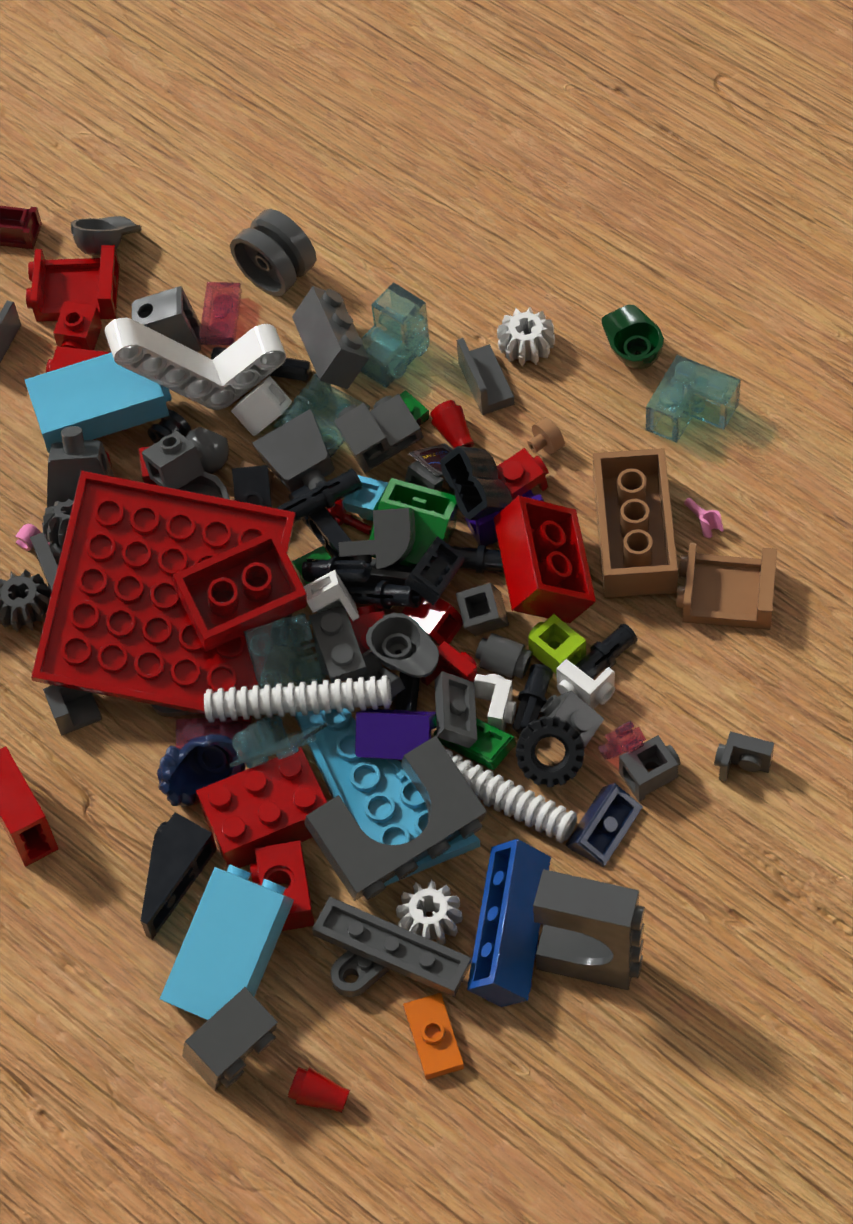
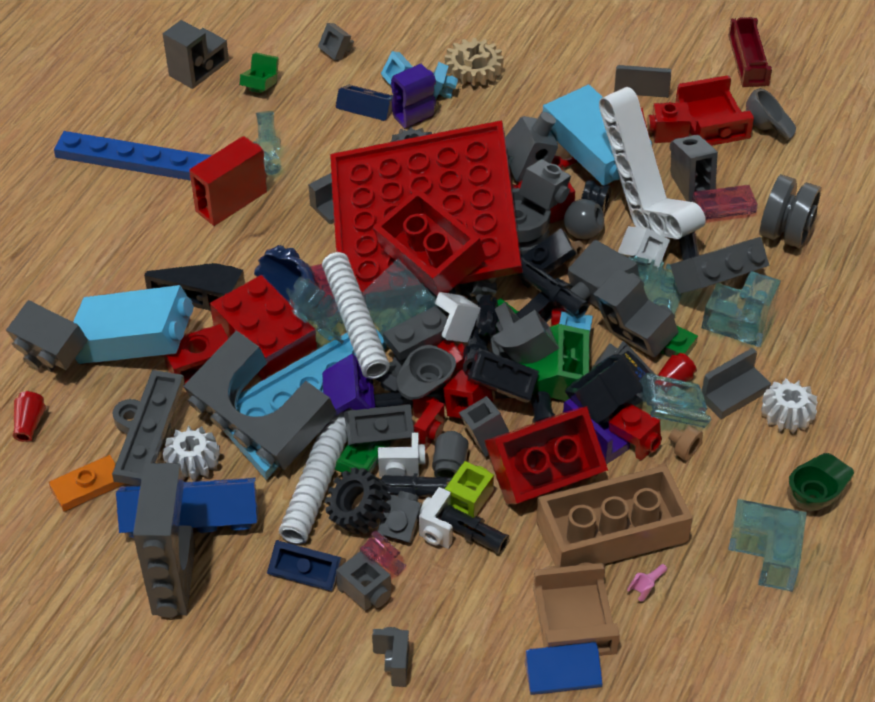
camera: 70 degrees right, 10 degrees down
(495, 429) = (675, 400): none -> clear light blue plate
(790, 614) = (563, 668): none -> blue slope

